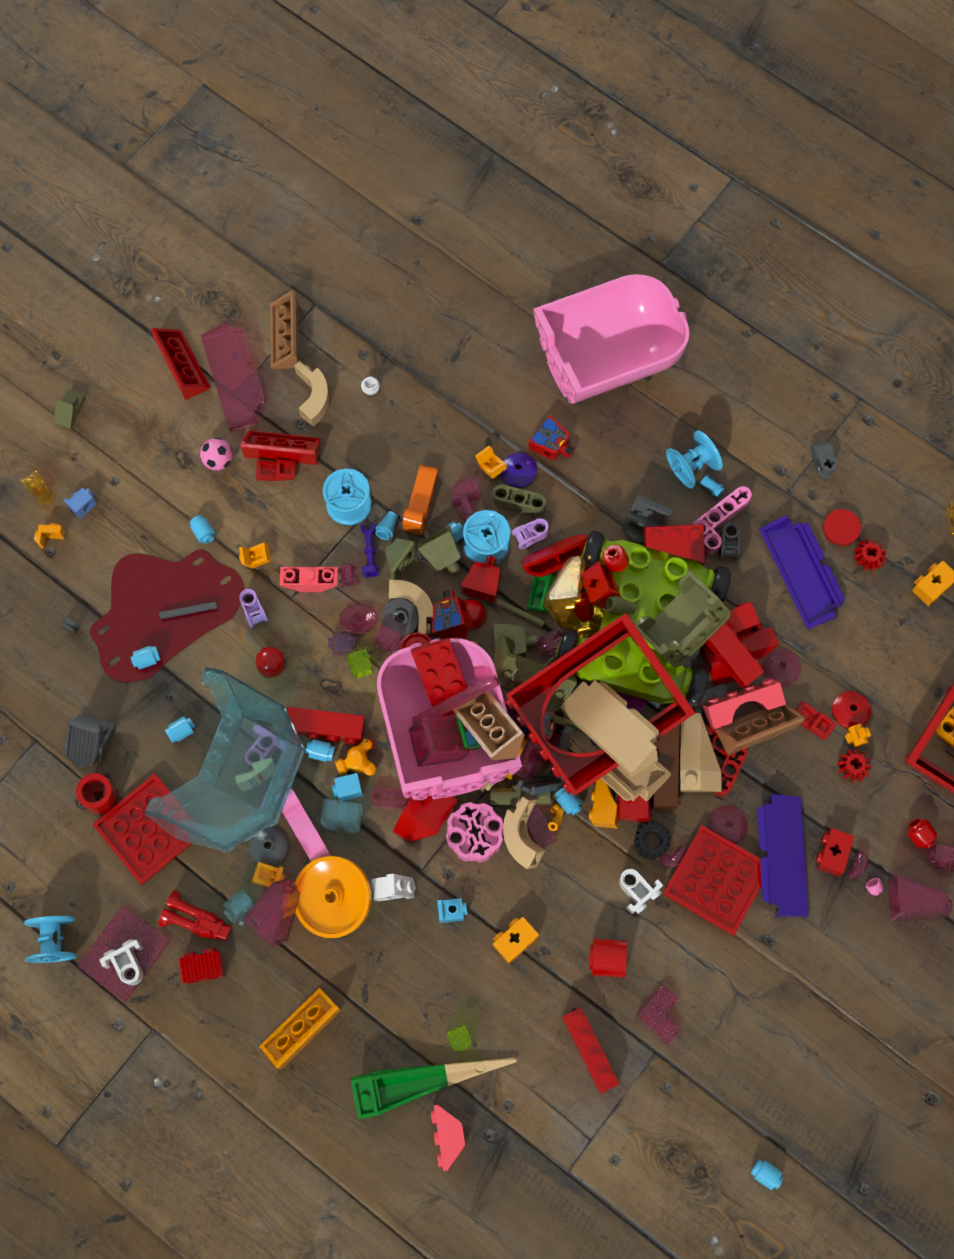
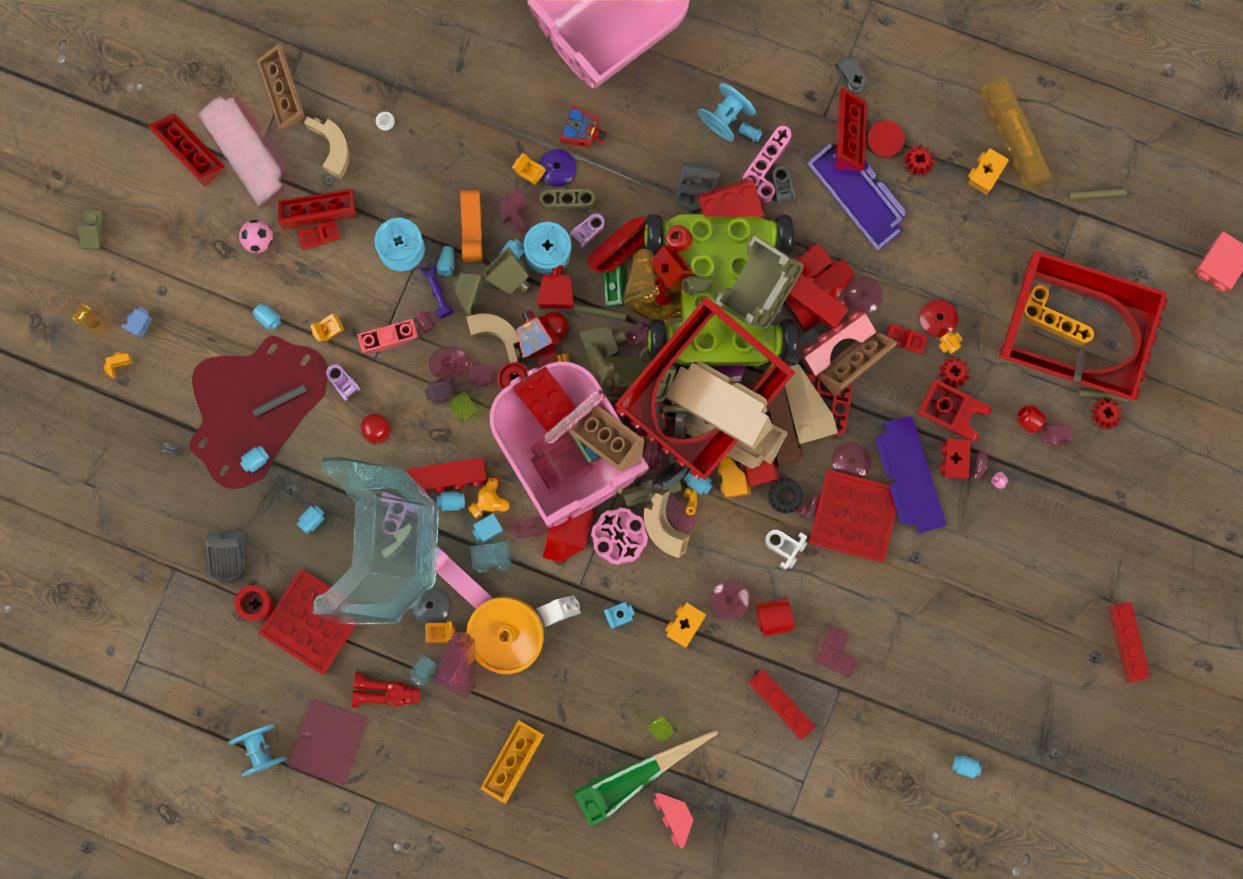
camera: 20 degrees left, 10 degrees up
(125, 960) = (332, 748): white pin -> none
(201, 967) = (405, 733): red brick -> none
(392, 619) = (486, 357): dark grey dish -> none
(568, 917) = (737, 593): none -> clear pink dish
(809, 510) = (850, 131): none -> red slope
(848, 805) = (957, 411): none -> red brick
(916, 901) = (1040, 483): clear pink slope -> none

